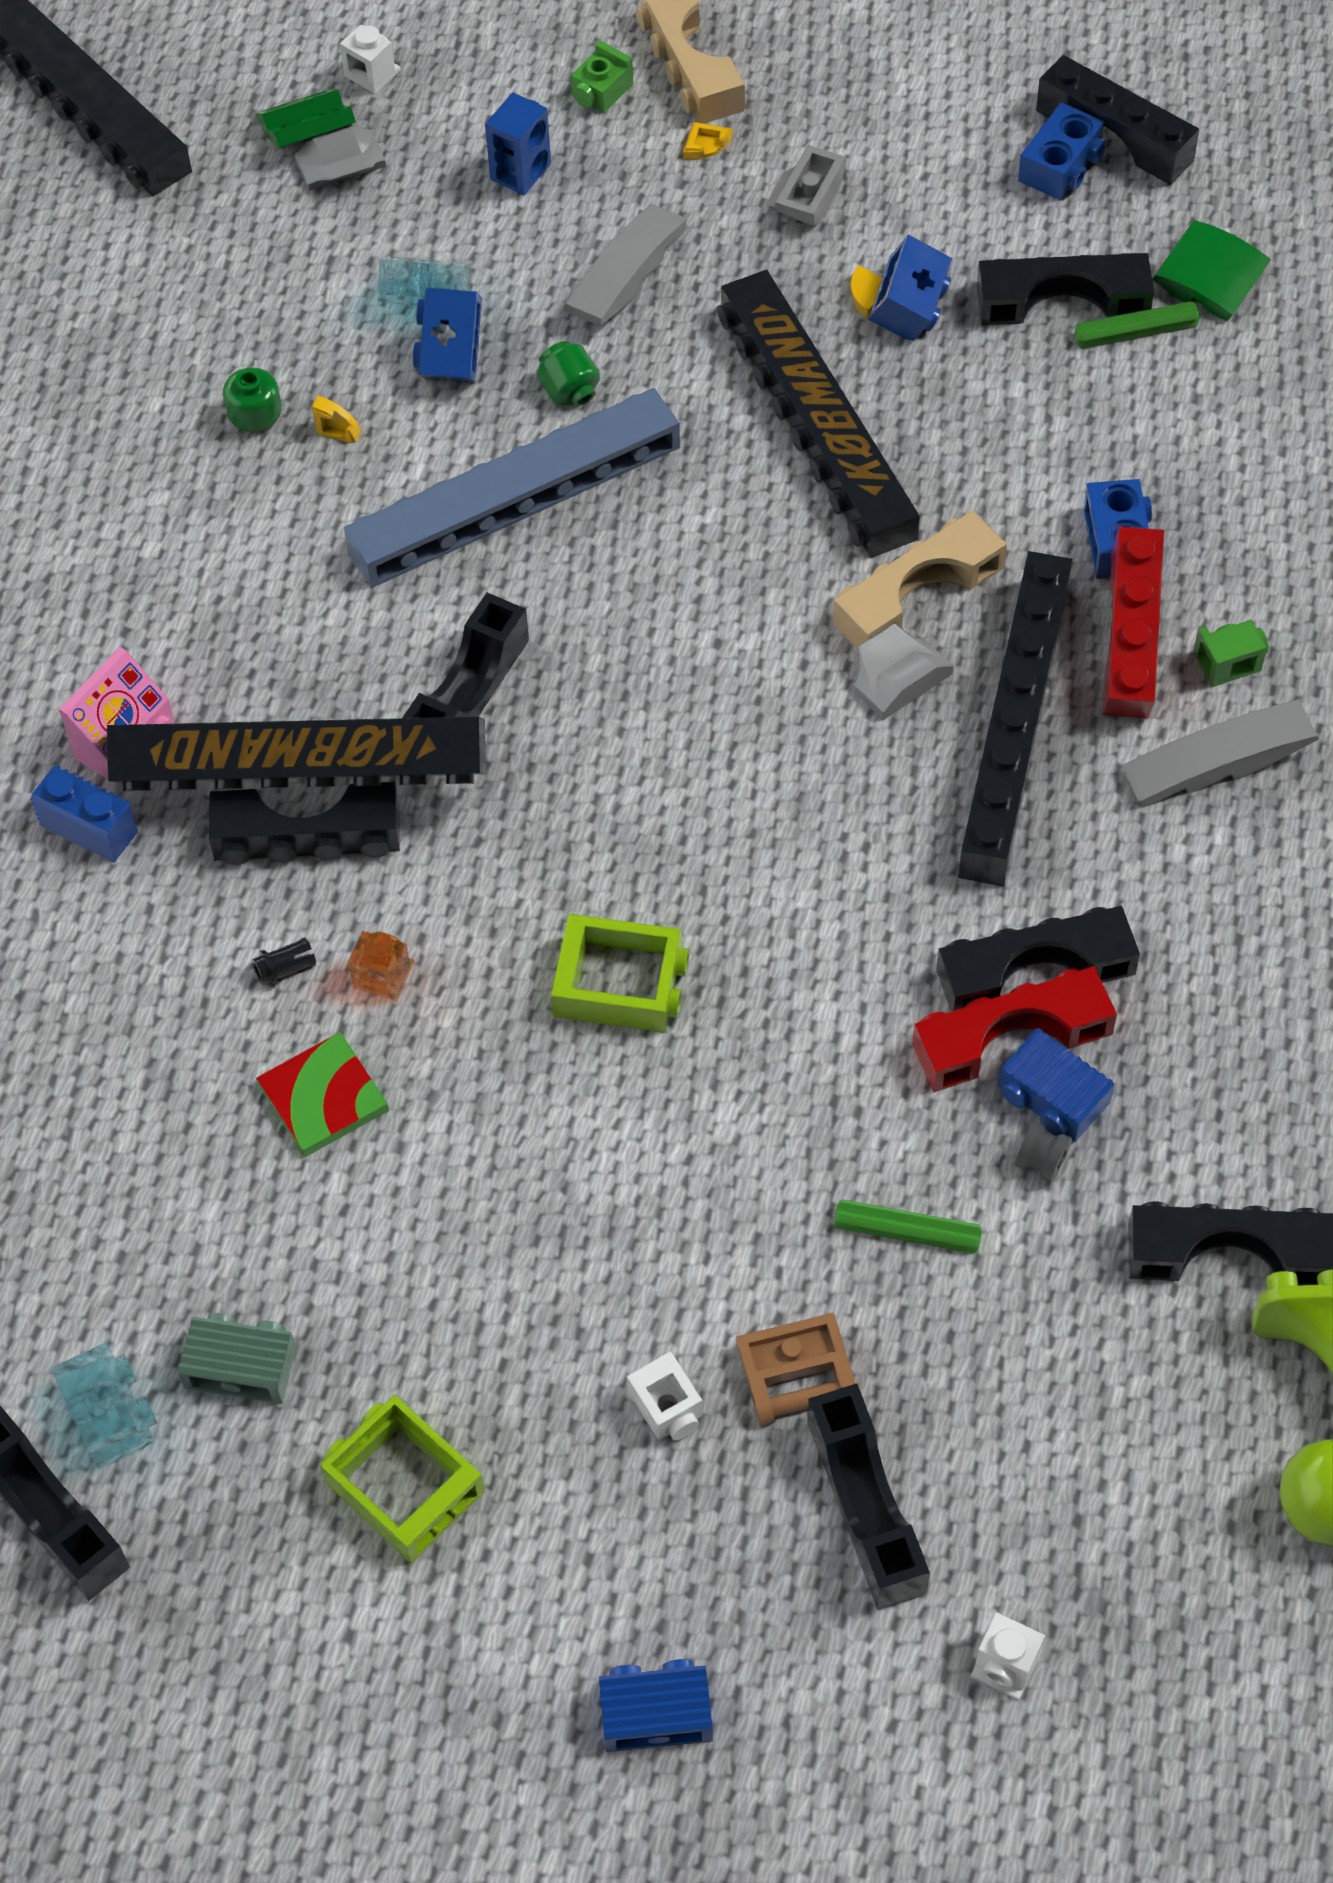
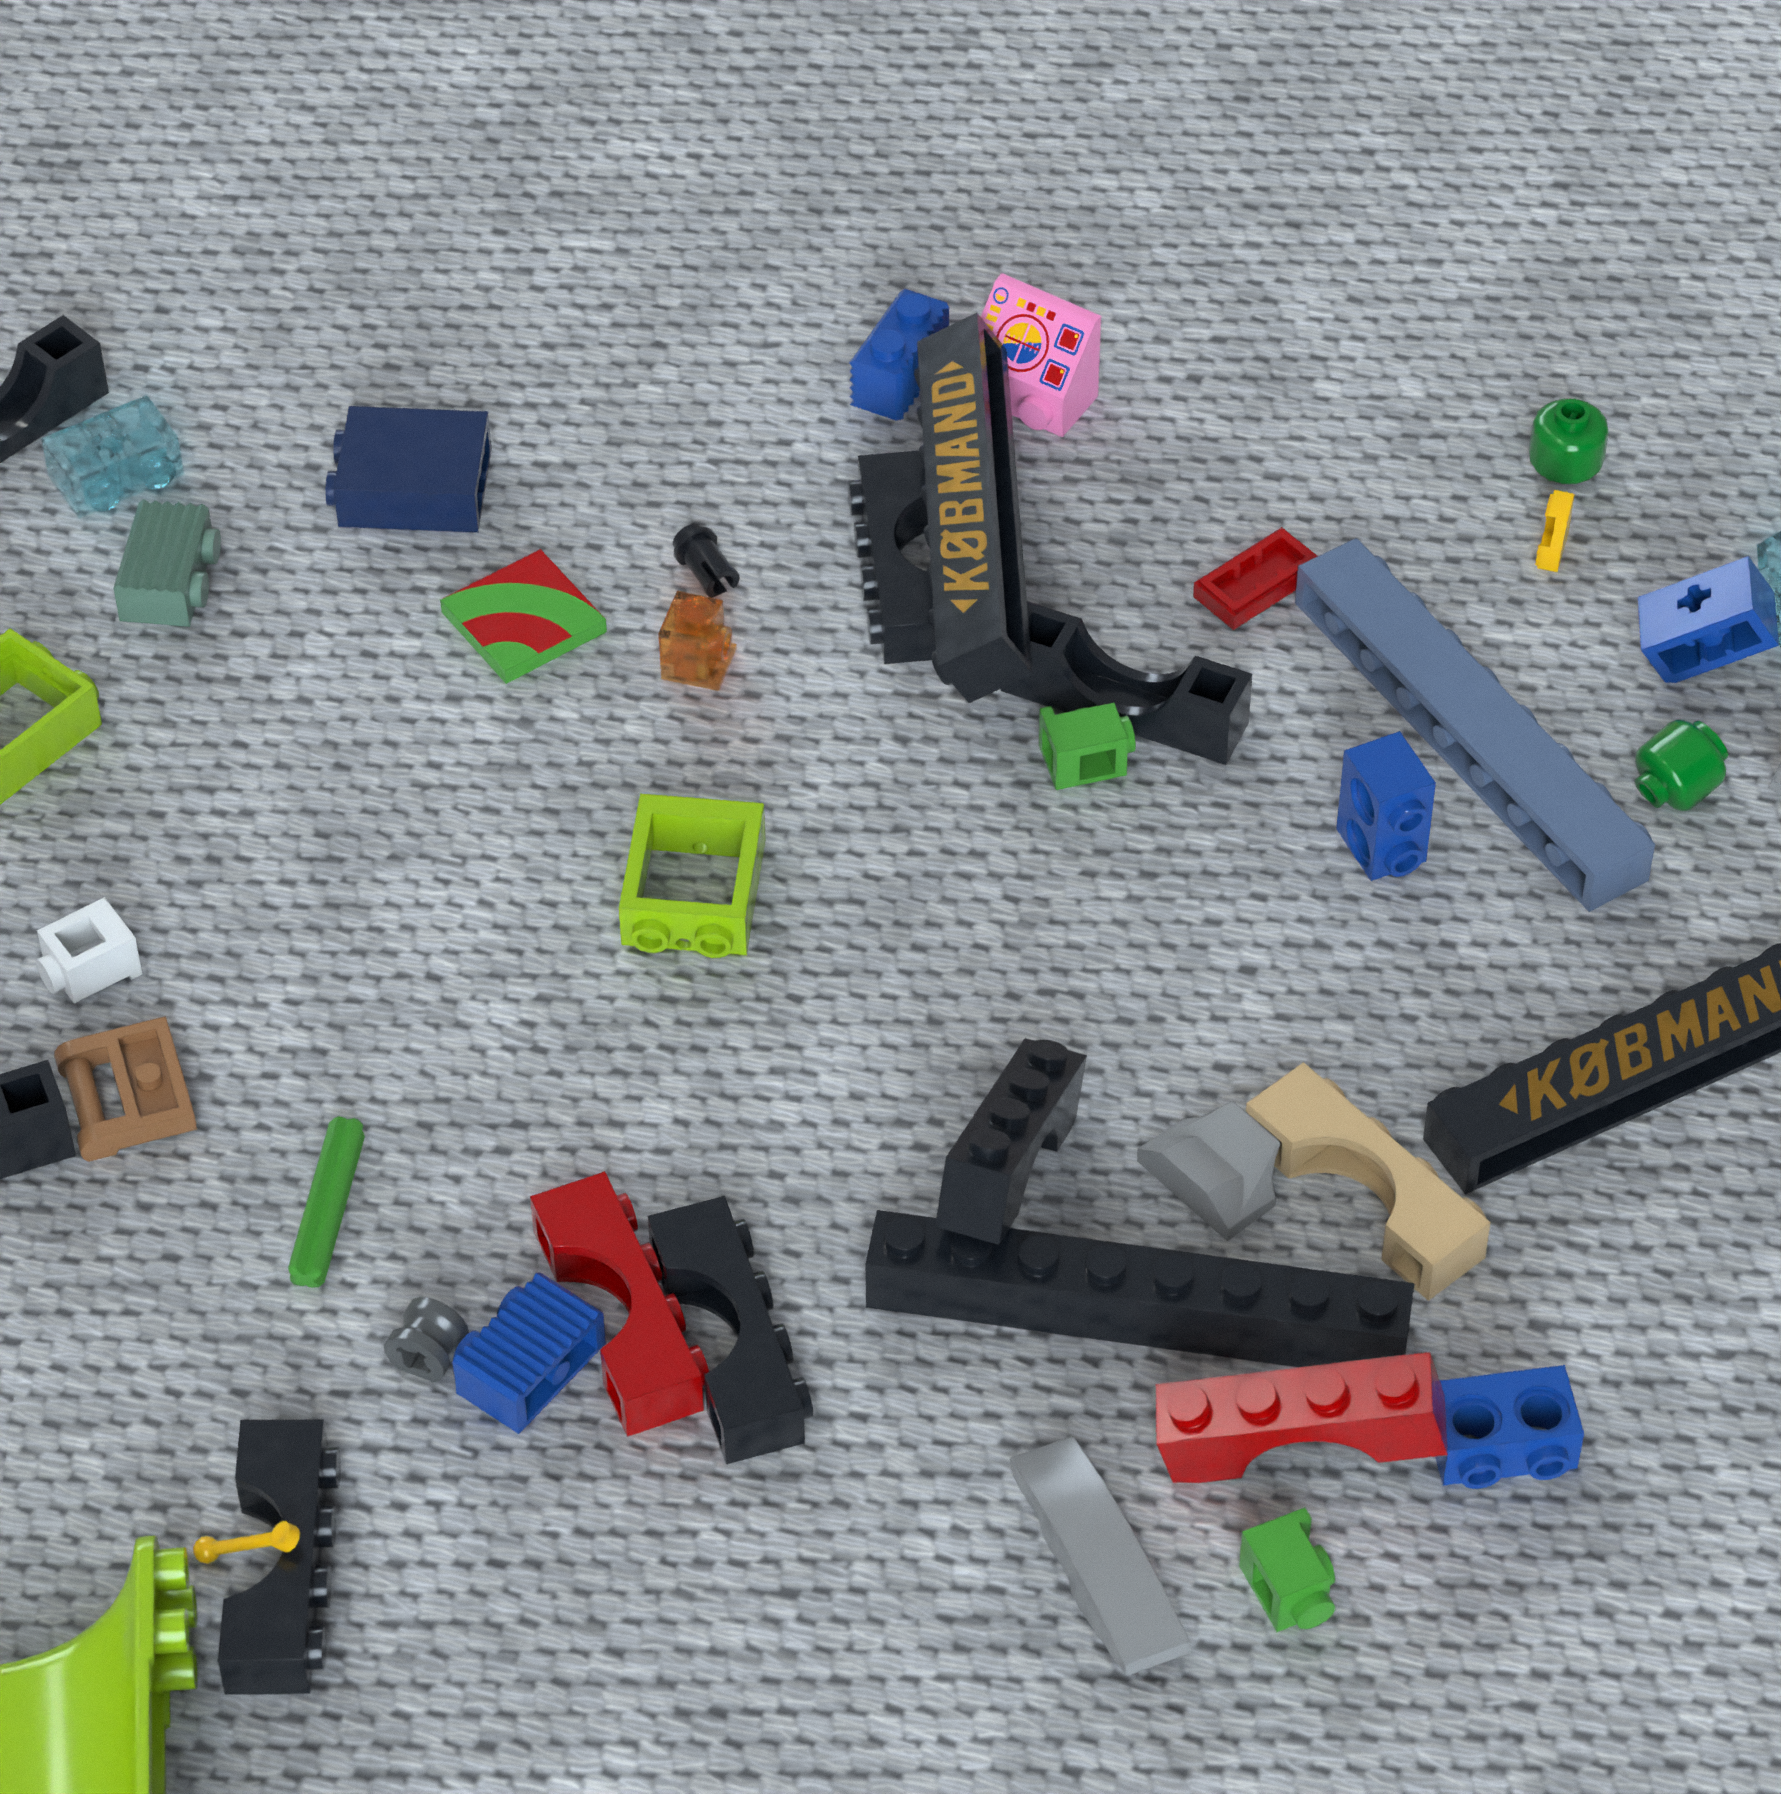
camera: 85 degrees right, 10 degrees down
(154, 1170) = (410, 469): none -> dark blue brick
(353, 603) = (1253, 579): none -> red plate
(511, 718) = (1085, 744): none -> bright green brick
(610, 531) = (1385, 806): none -> blue brick
(953, 764) = (993, 1157): none -> black arch
(1242, 1223) = (283, 1537): none -> yellow hinge

